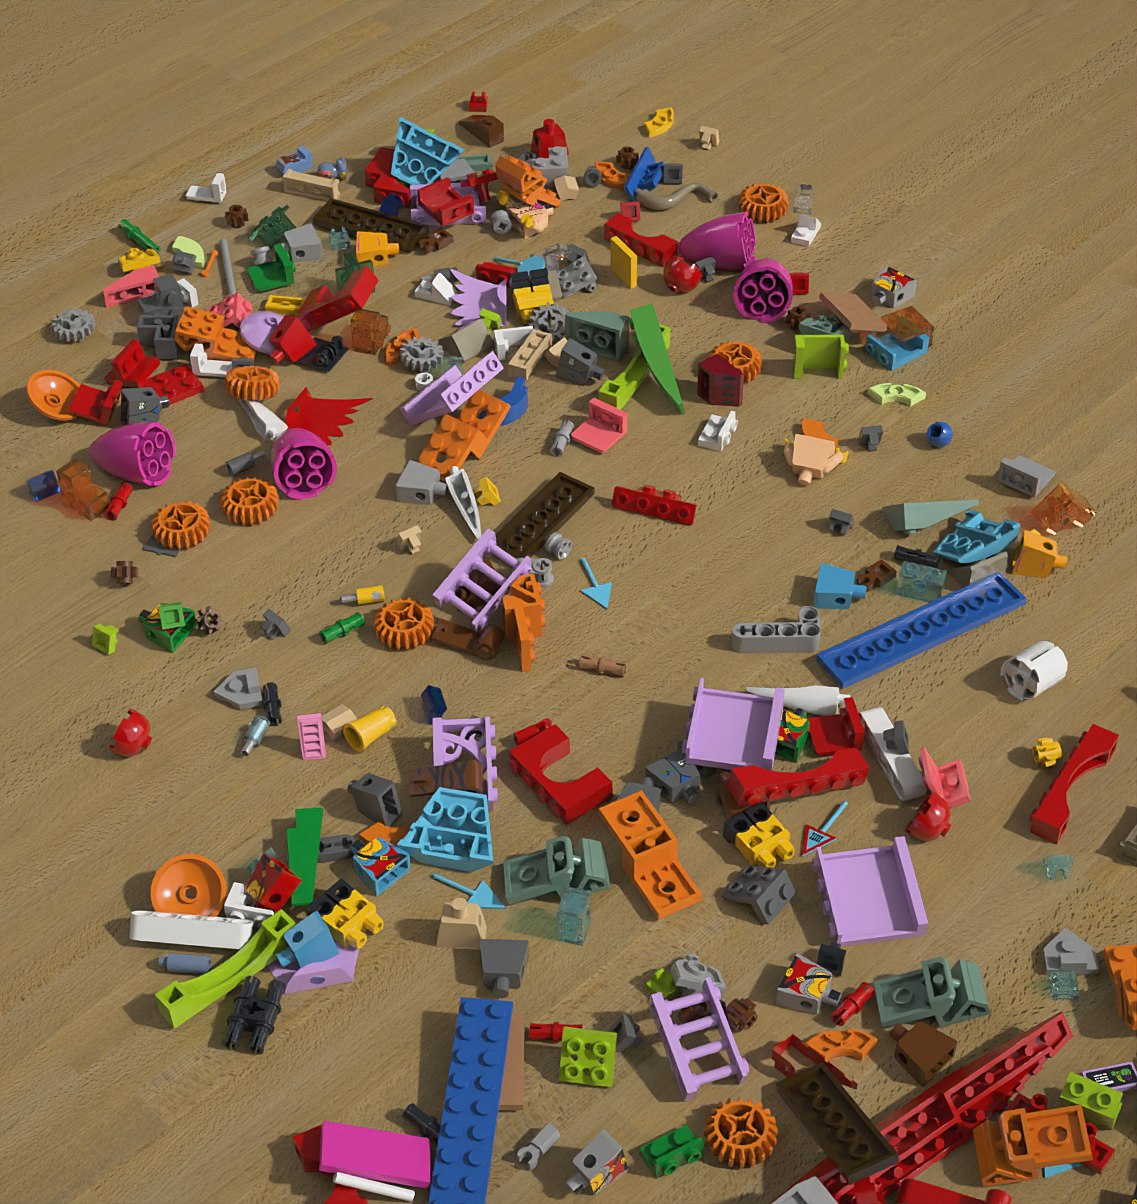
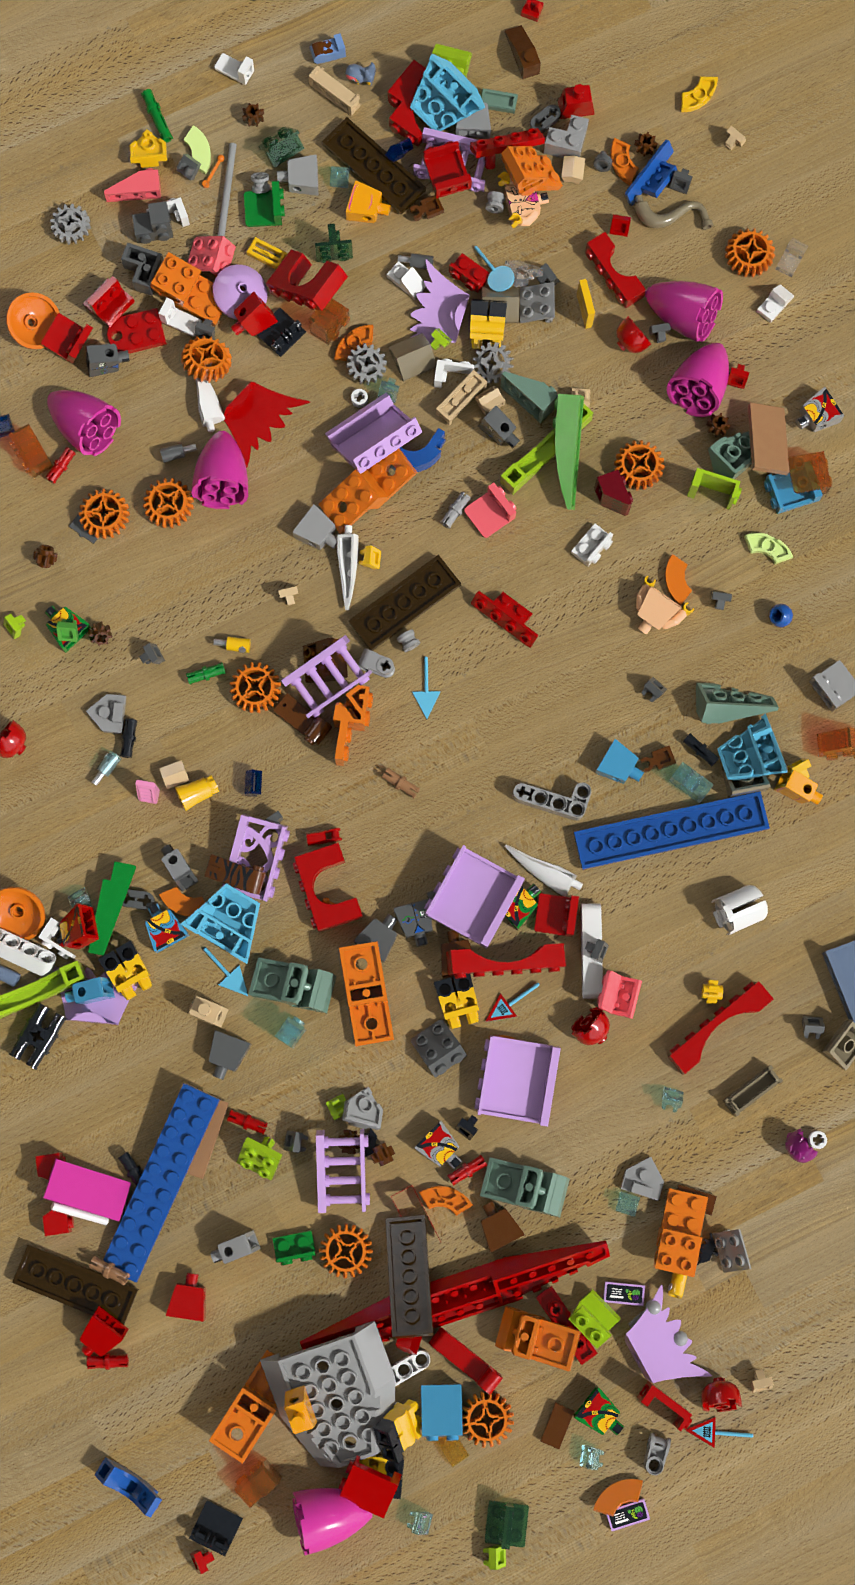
camera: 15 degrees right, 35 degrees up
(539, 1145) = (205, 1211): light grey bar -> none

